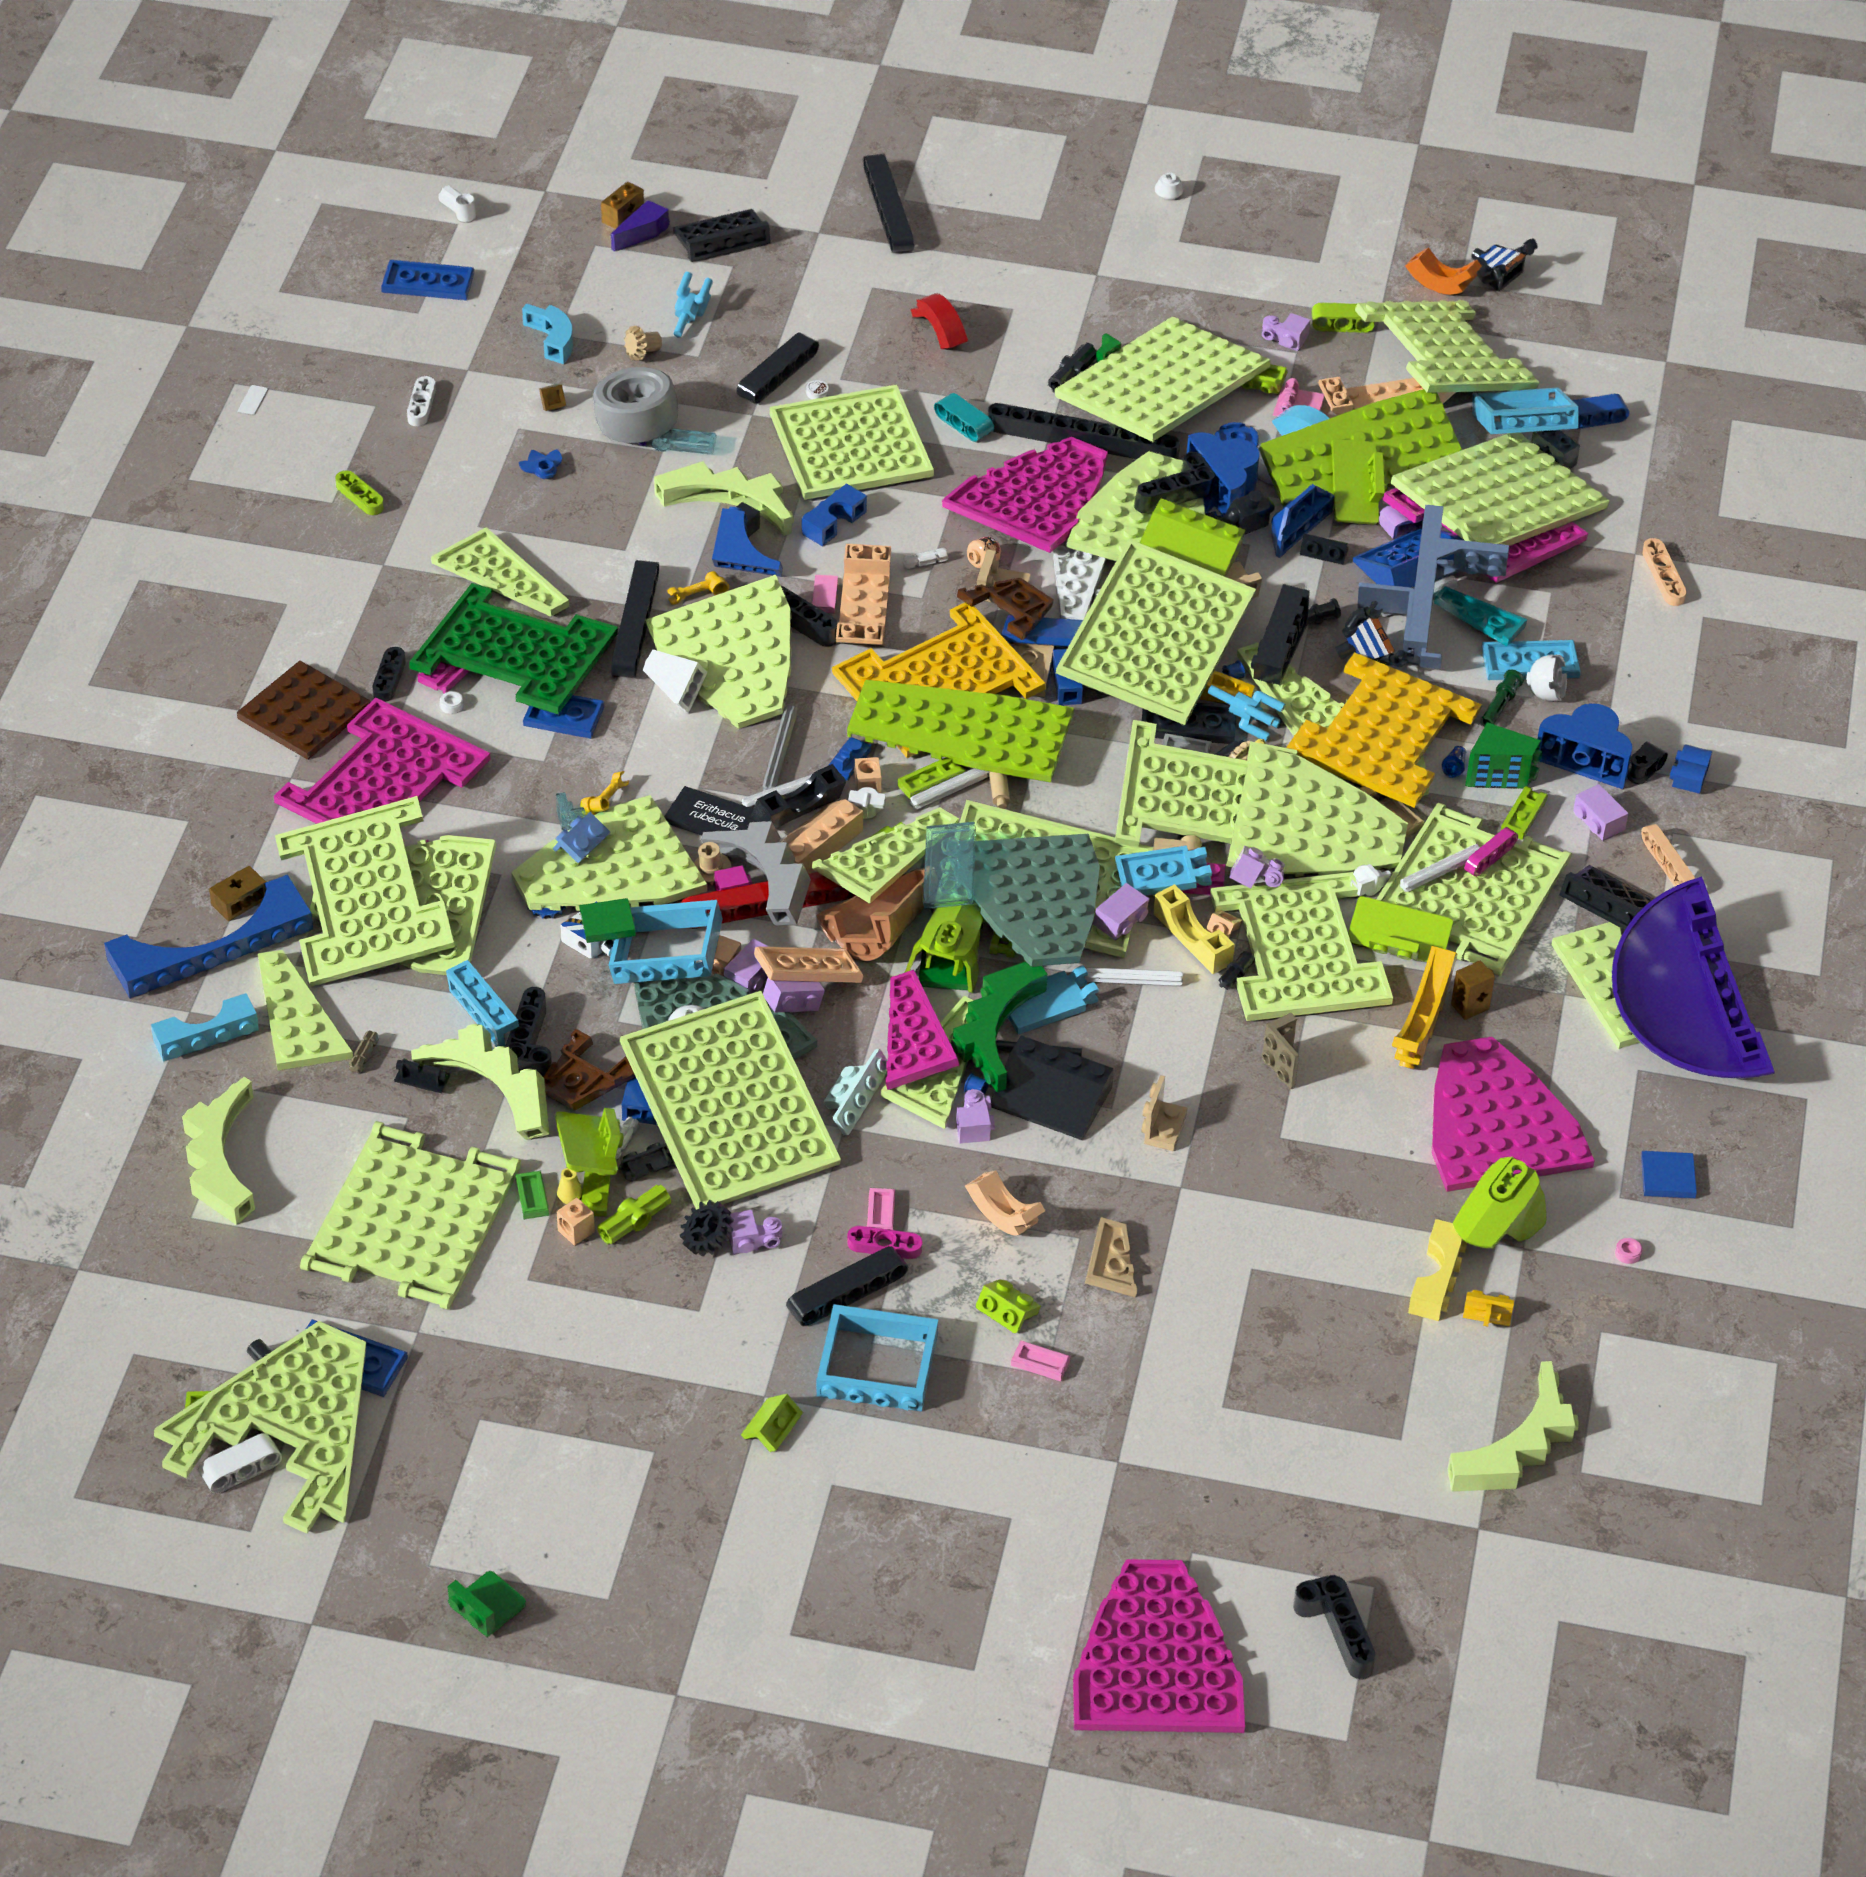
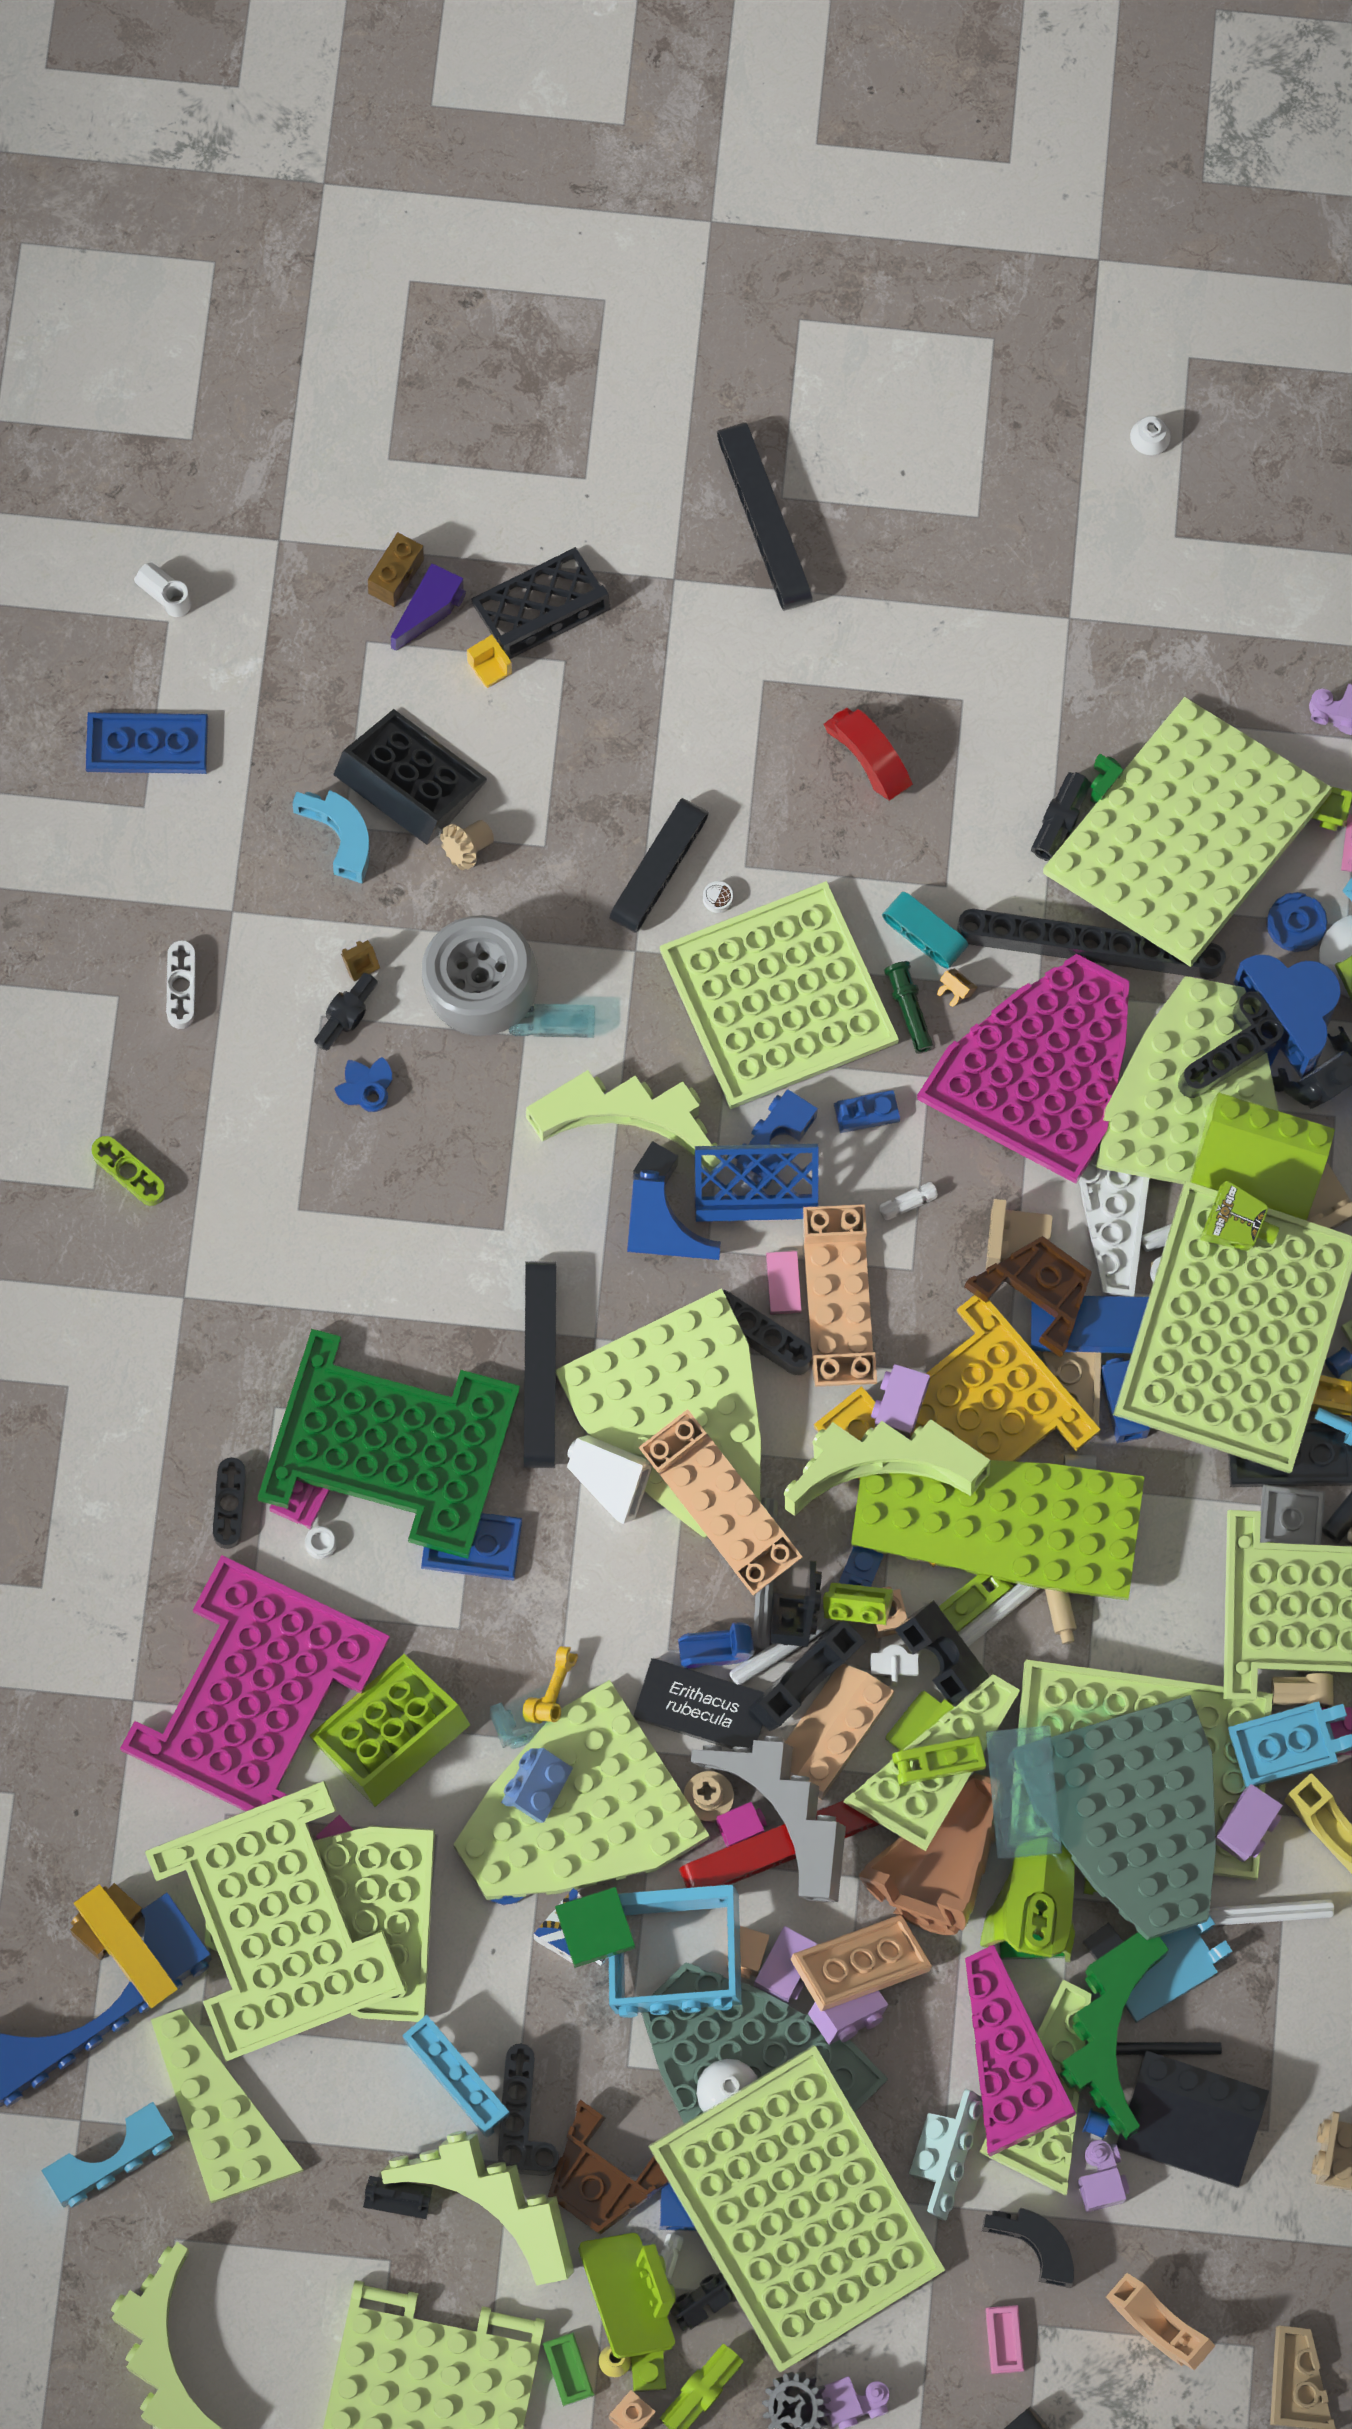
camera: 10 degrees left, 25 degrees up
(247, 896) = (125, 1946): none -> yellow slope
(303, 709) = (128, 1580): reddish brown plate -> none
(363, 1051) = (316, 2164): dark tan axle -> none
(481, 806) = (390, 1729): none -> lime slope
(496, 566) = (332, 1288): yellowish green wing -> none
(536, 422) = (345, 1011): none -> black axle
(605, 307) = (408, 776): none -> black slope
(678, 256) = (489, 661): none -> yellow panel
(689, 304) = (519, 756): medium azure plant -> none
(712, 582) = (633, 1284): yellow brick -> none
(735, 783) = (716, 1647): none -> blue animal
(748, 689) = (720, 1502): none -> light nougat slope
(791, 769) = (793, 1614): none -> black bracket
(807, 546) = (750, 1205): none -> blue fence
(842, 753) = (857, 1603): none -> lime bracket
(877, 1234) = (991, 2398): dark pink beam -> none
(879, 672) = (928, 1453): none -> yellowish green arch
(888, 844) = (940, 1760): none -> lime plate
(894, 777) = (959, 1667): none -> black arch
(898, 652) = (902, 1399): none -> lavender brick
(903, 509) = (867, 1111): none -> blue plate
(917, 1145) = (1042, 2237): none -> black arch
(944, 449) = (906, 994): none -> dark green pin
(977, 550) = (985, 1185): light nougat head -> none
(980, 446) = (957, 984): none -> tile
(1162, 560) = (1237, 1220): none -> lime torso

